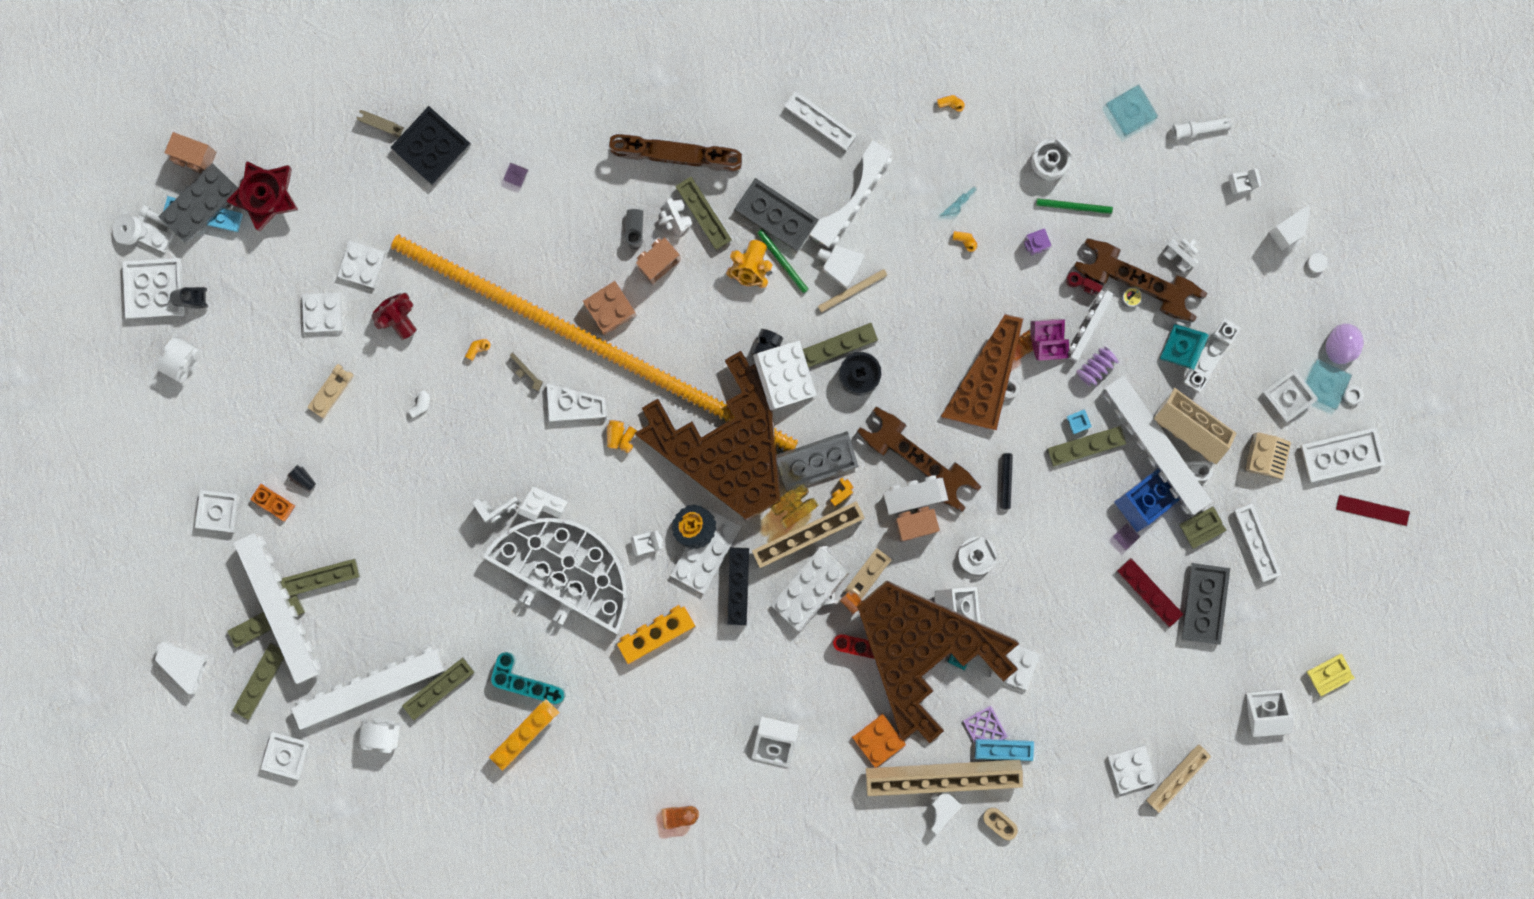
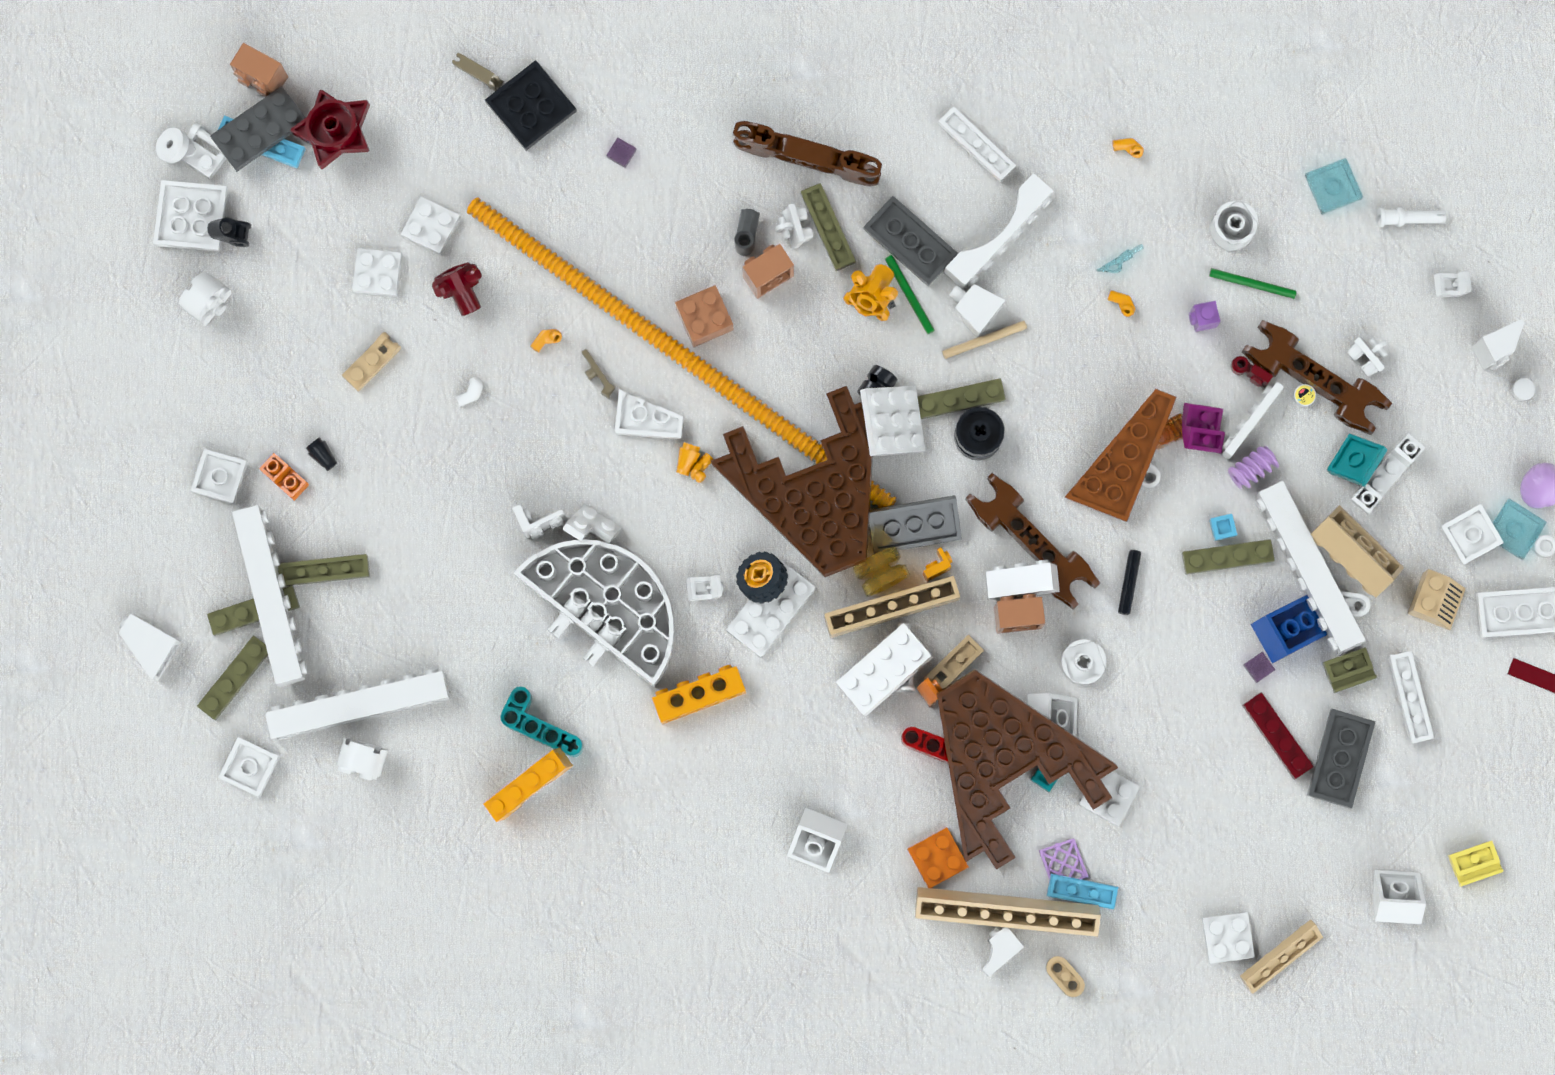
camera: 10 degrees right, 5 degrees down
(438, 688) = (437, 718): olive plate -> none
(675, 816) = (688, 909): clear orange piece -> none
(738, 586) = (802, 653): black brick -> none

